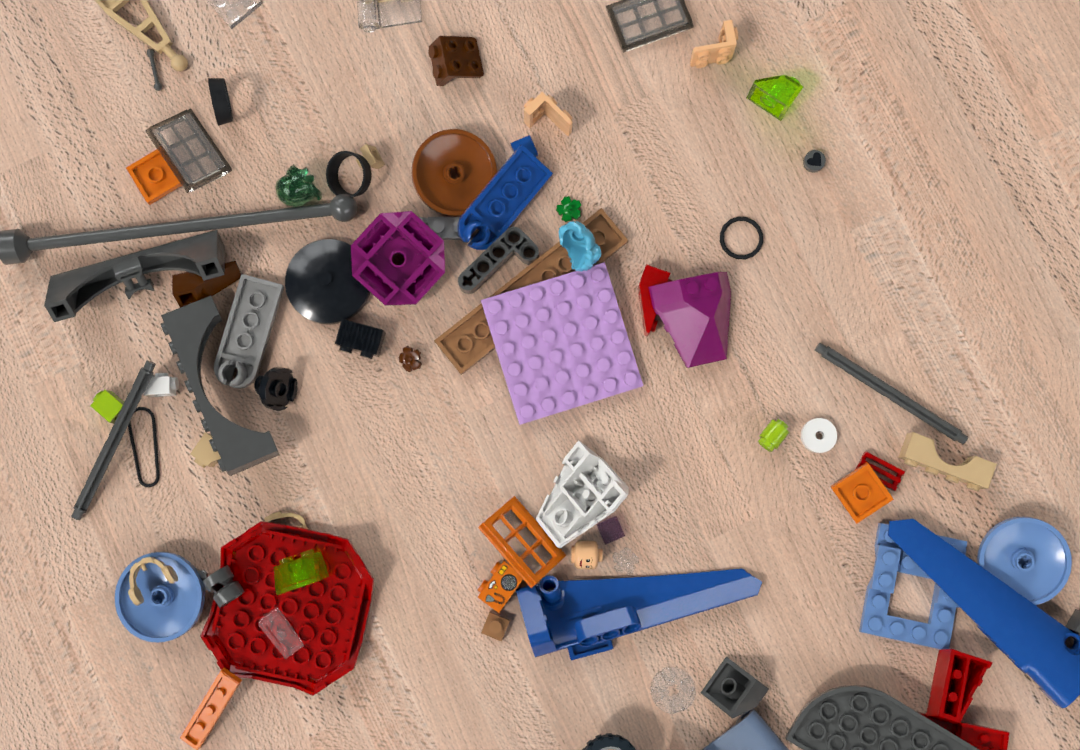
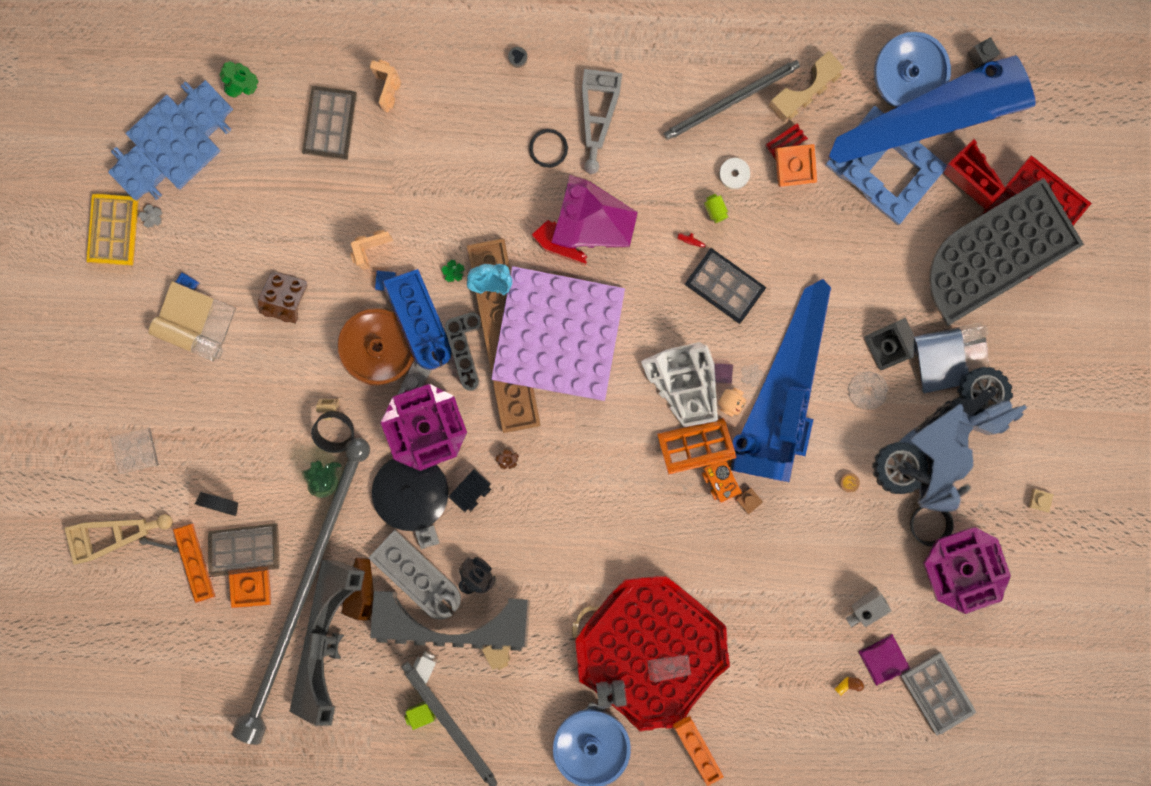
camera: 65 degrees left, 5 degrees up
(134, 592) = (578, 765): tan piece -> none
(153, 110) = (194, 562): none -> orange tile
(155, 449) = (471, 695): black piece -> none
(292, 321) = (427, 537): none -> light grey tile
(299, 572) = (631, 629): clear neon green slope -> none
(568, 721) = (849, 482): none -> medium nougat tile
(700, 486) = (725, 286): none -> clear piece
(727, 426) = (690, 240): none -> red helmet
(775, 94) = (450, 58): clear neon green slope -> none
(835, 255) = (602, 82): none -> light grey plate

